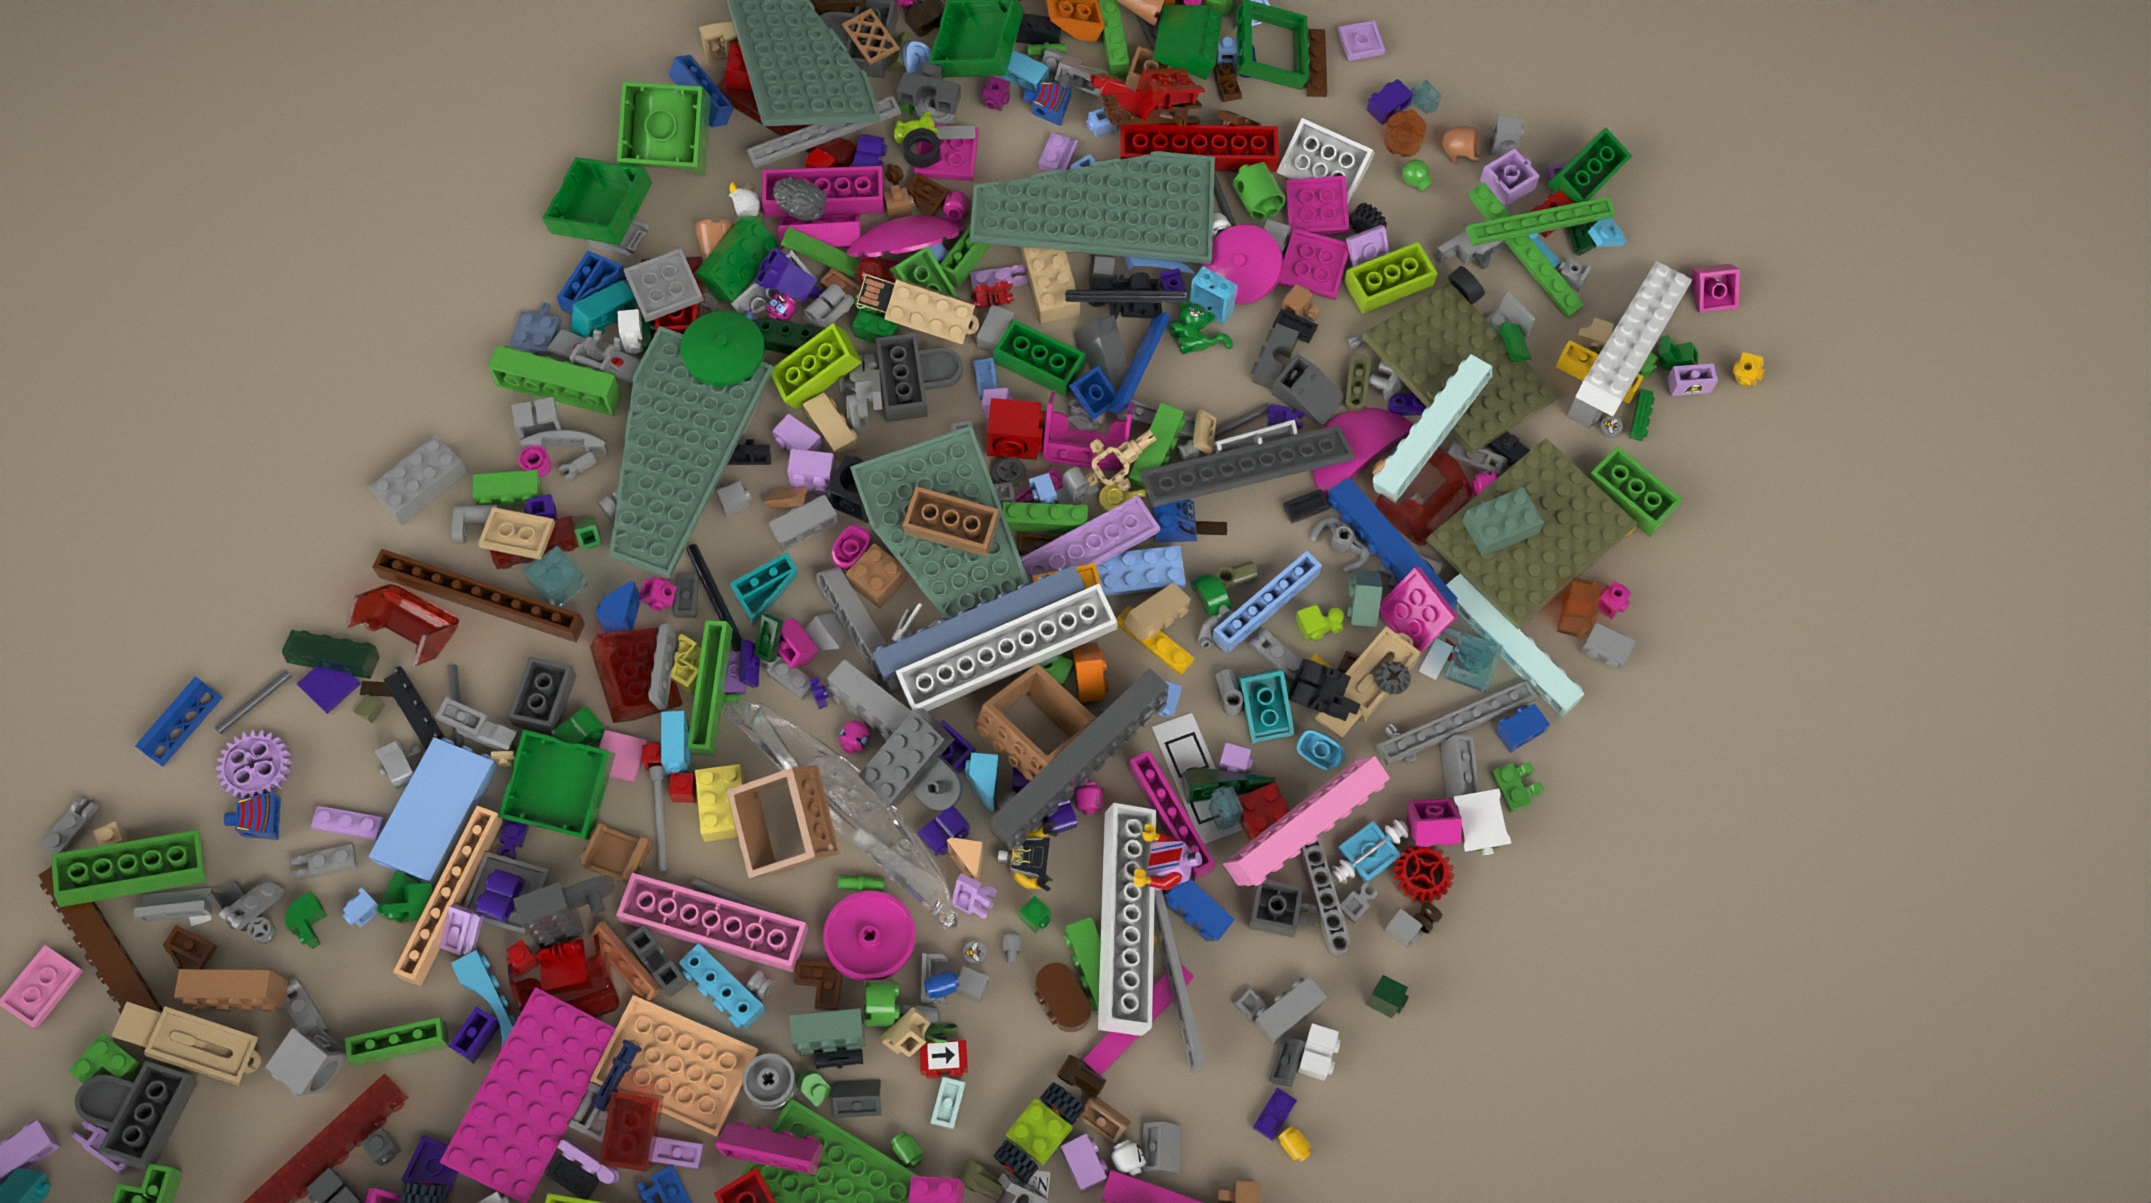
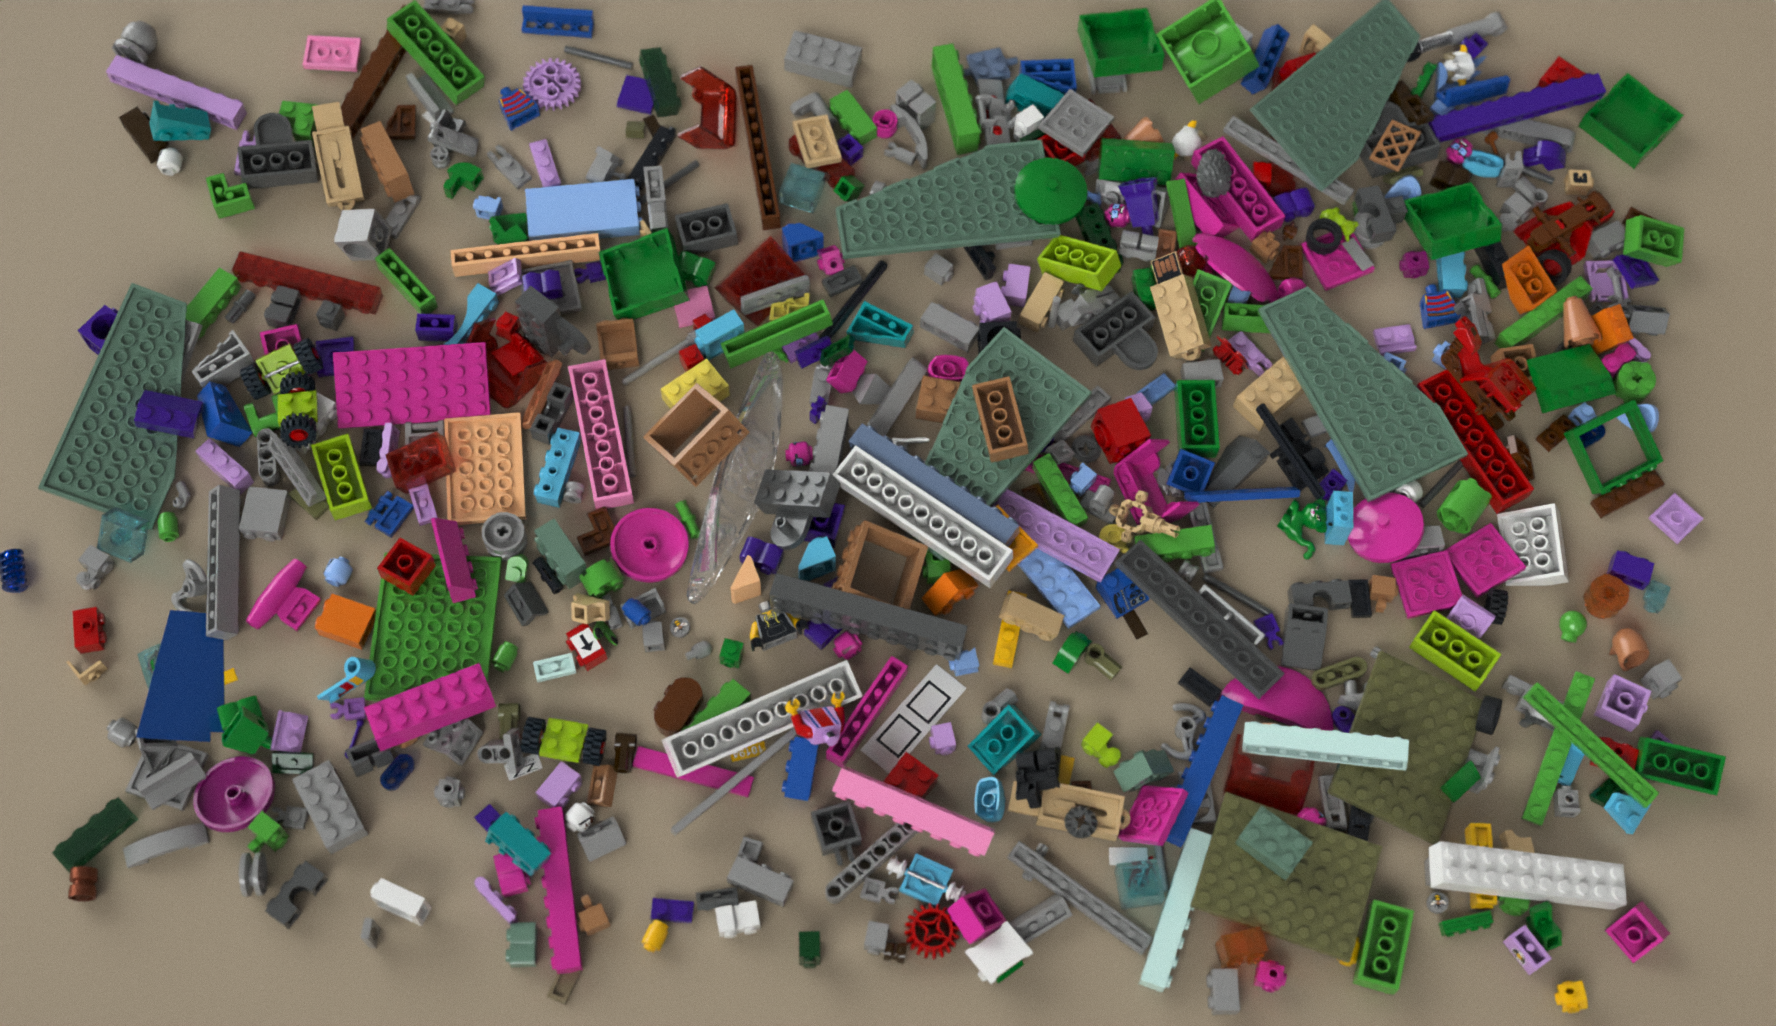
camera: 60 degrees right, 0 degrees up
(621, 1064) = (464, 431): dark blue pin -> none
(786, 497) = (961, 303): medium nougat slope -> none
(971, 897) = (717, 598): lavender plate -> none
(1201, 783) = (909, 727): dark green wedge -> none
(1204, 432) = (1212, 573): tan plate -> none
(1208, 626) = (1042, 662): light grey arm -> none
(1225, 808) = (894, 747): clear light blue brick -> none
(1266, 602) = (1092, 695): light blue brick -> none
(1512, 788) = (1049, 970): bright green plate -> none
(1522, 727) = (1106, 952): blue brick -> none

